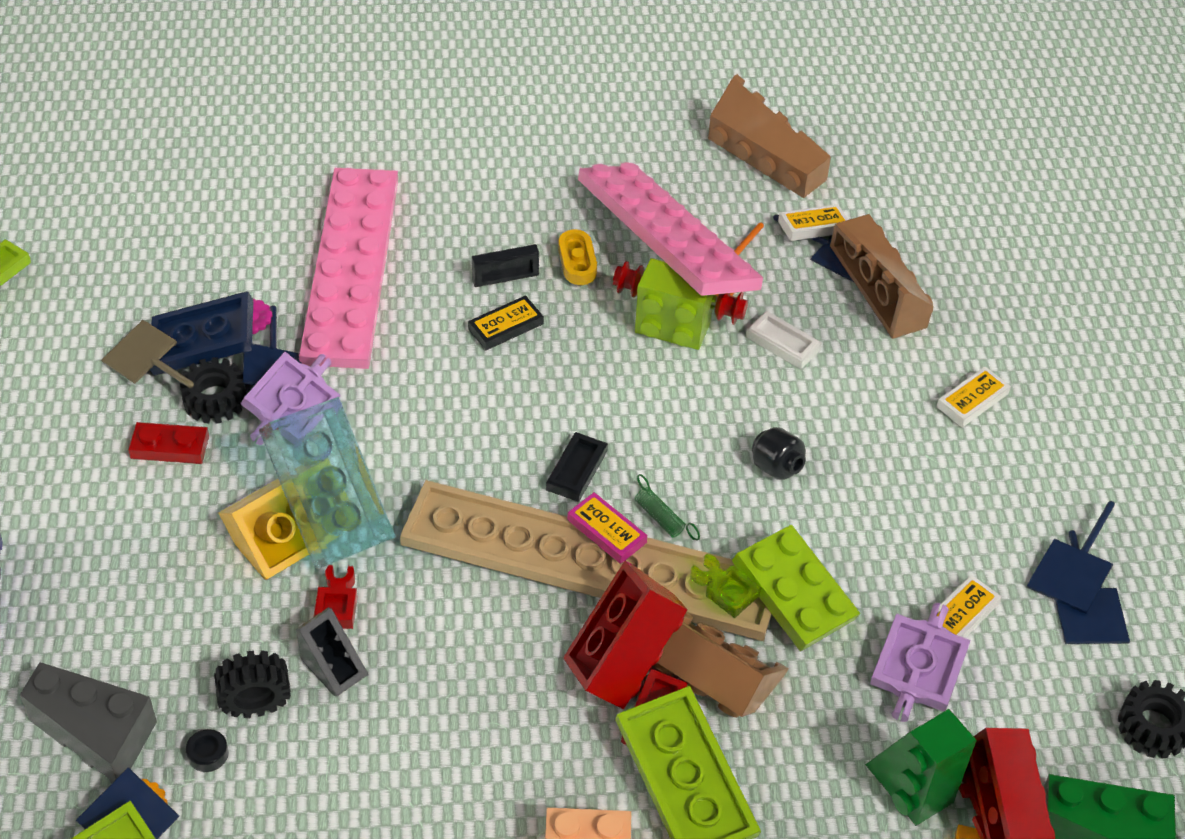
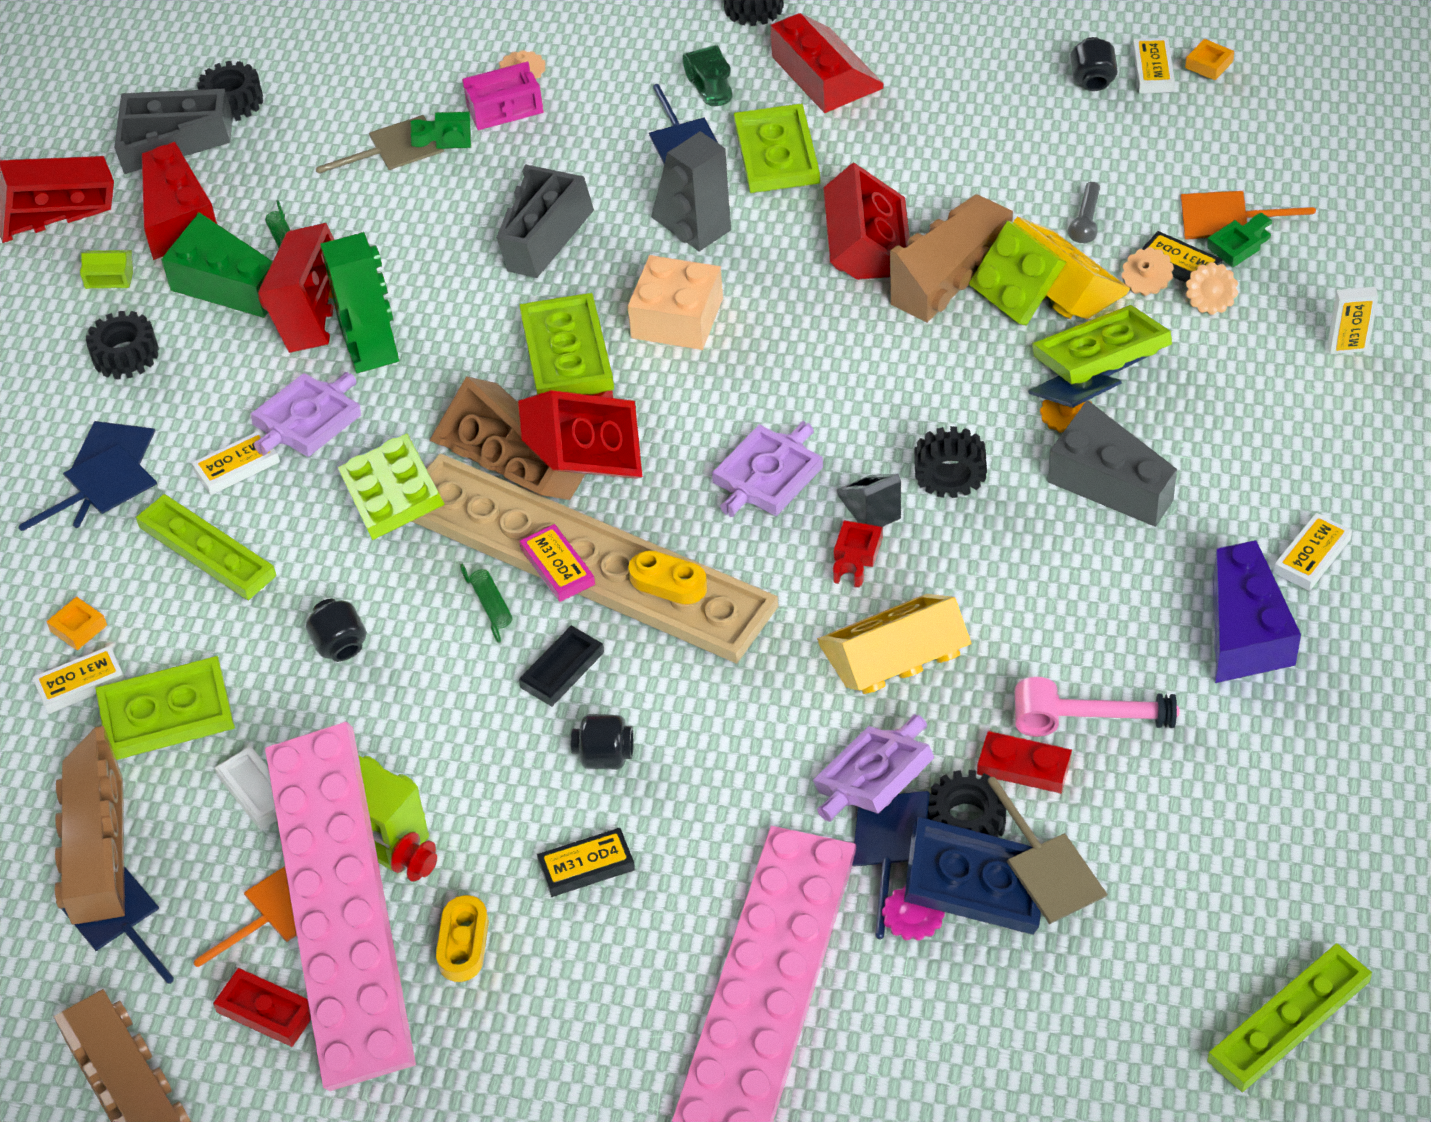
camera: 160 degrees left, 0 degrees up
(155, 474) = (1040, 707): none -> bright pink piece
(207, 750) = (1001, 444): black tile -> none
(326, 482) = (848, 607): clear light blue brick -> none
(438, 673) = (767, 469): none -> lavender plate
(501, 529) = (663, 575): none -> yellow plate
(505, 265) = (562, 932): black tile -> none
(518, 400) = (603, 741): none -> black head
(701, 200) = (264, 1007): none -> red plate
(727, 588) = (460, 478): clear neon green plate -> none
(811, 222) = (127, 944): tile -> none
(887, 378) = (165, 707): none -> lime plate
(938, 516) = (206, 547): none -> lime plate
(1004, 433) = (76, 623): none -> light orange plate

